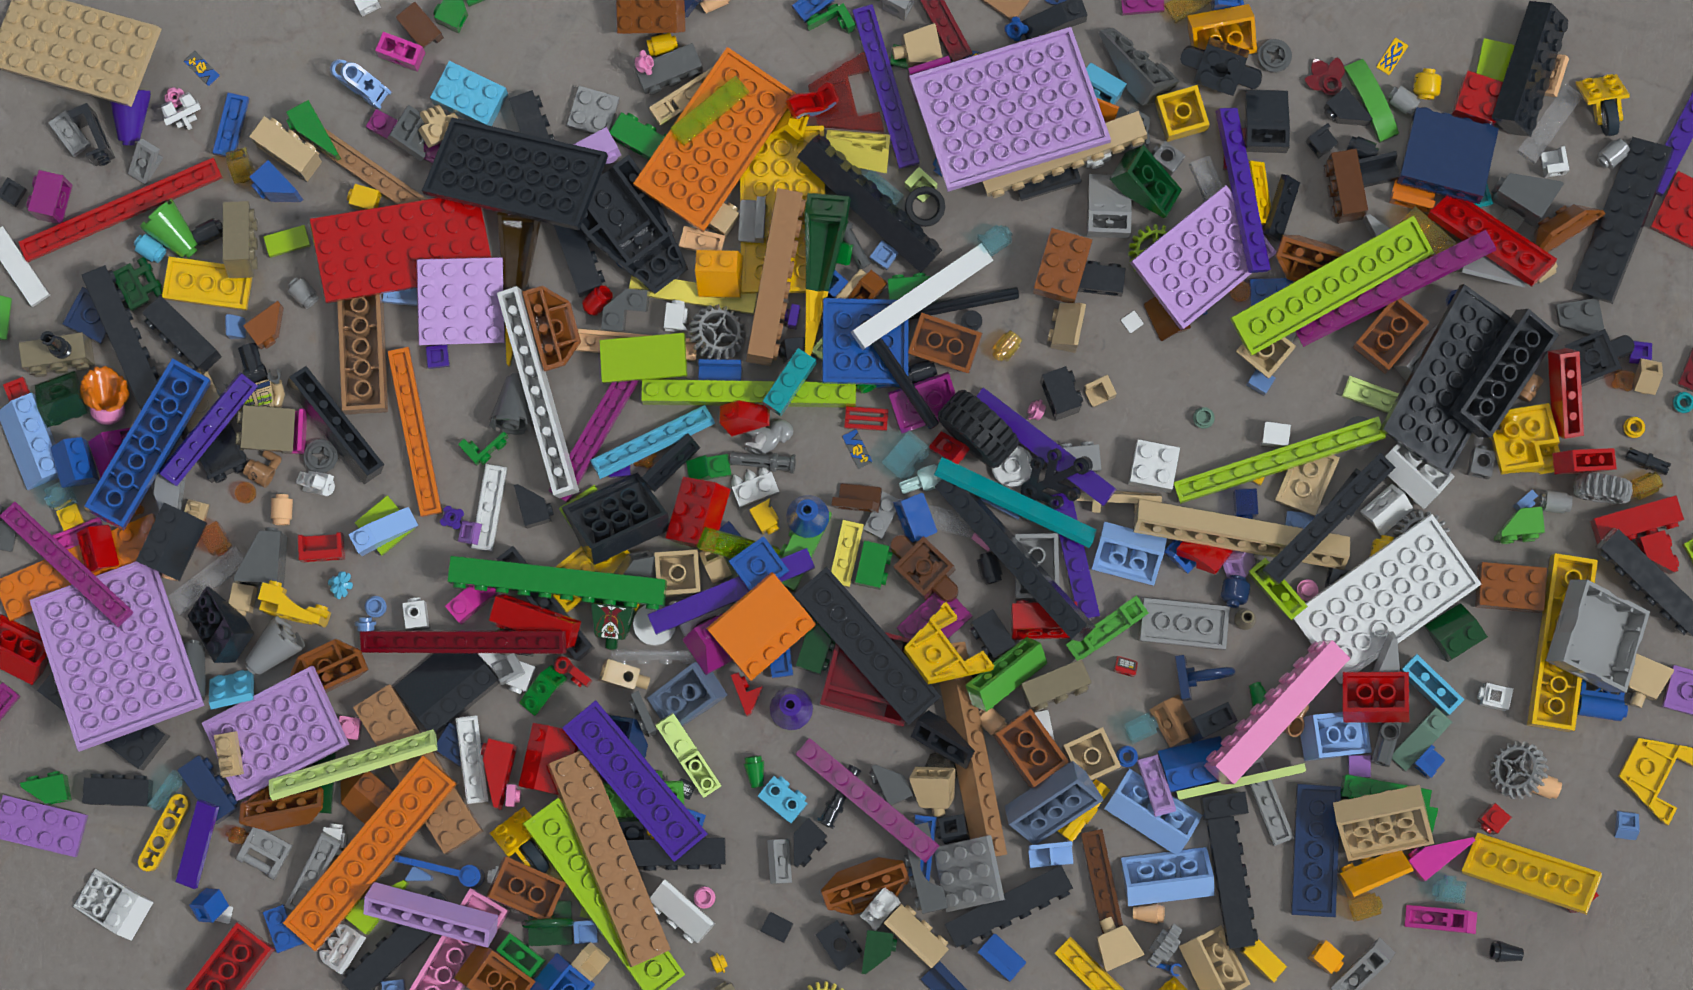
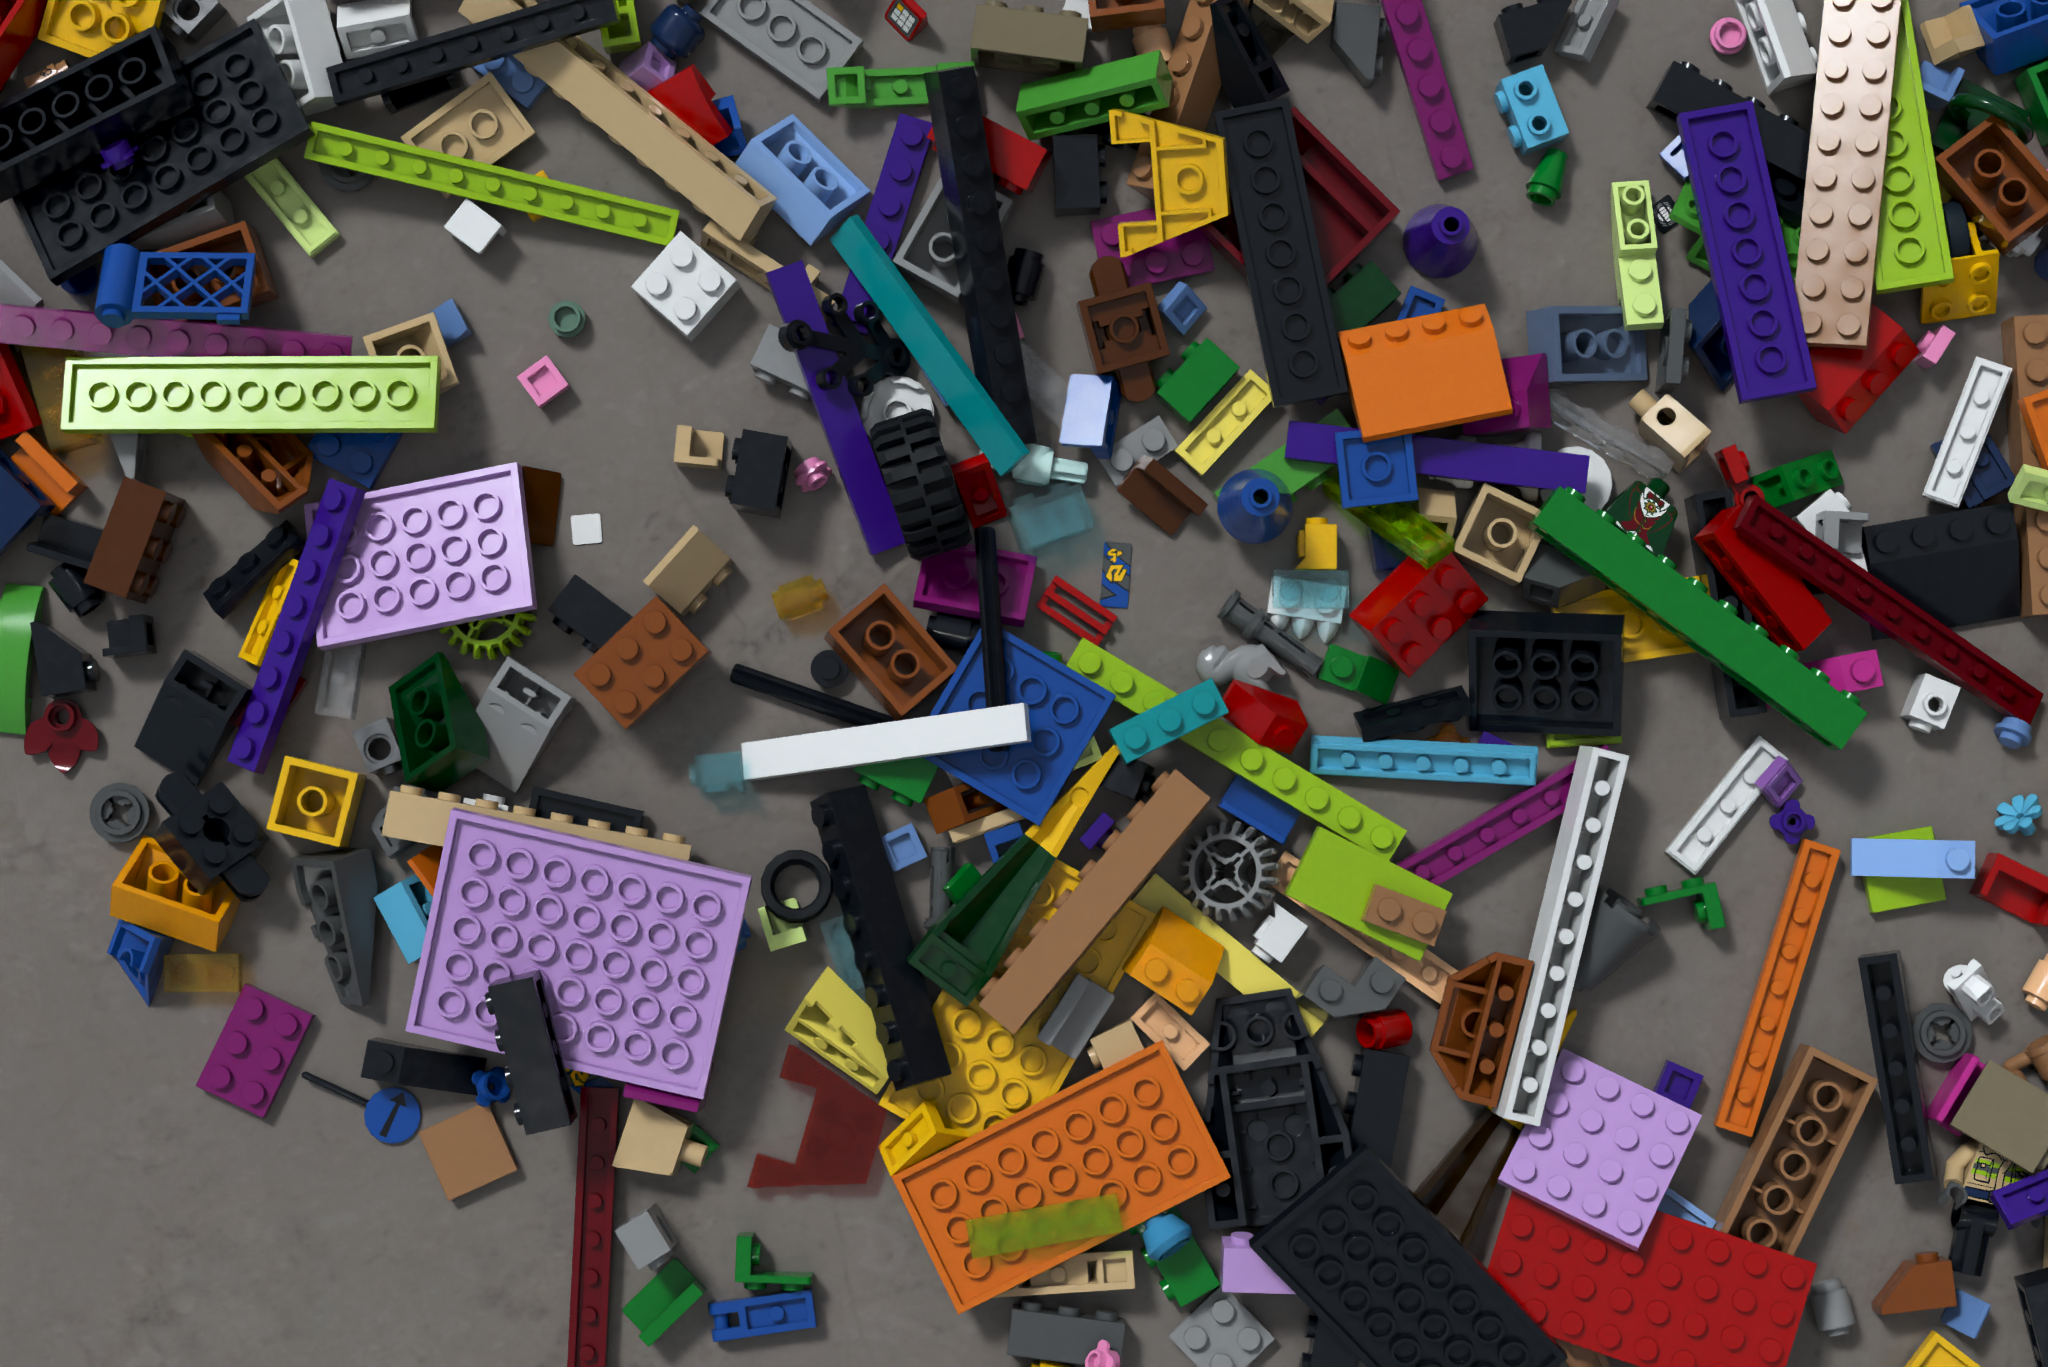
camera: 150 degrees left, 5 degrees up
(375, 606) = (1982, 751): medium blue plate -> none
(498, 765) = (1937, 396): red slope -> none
(533, 507) = (1661, 766): black slope -> none
(620, 356) = (1404, 915): none -> medium nougat plate
(648, 139) = (1165, 1236): none -> dark azure cone
(748, 698) = (1499, 290): red slope -> none
(756, 492) = (1310, 589): none -> clear light blue plate
(812, 103) = (876, 1147): red animal -> none
(834, 806) = (1458, 58): black pin -> none
(885, 86) = (746, 1112): dark purple plate -> none
(901, 597) = (1181, 308): none -> medium blue plate
(1003, 49) = (531, 1052): none -> black brick
(1196, 380) = (543, 381): none -> bright pink plate
(1240, 292) = (394, 474): clear orange plate -> none
(1245, 503) = (582, 152): clear blue brick -> none
(1424, 300) = (125, 286): none -> blue piece
(1470, 364) = (118, 154): none -> dark purple plate

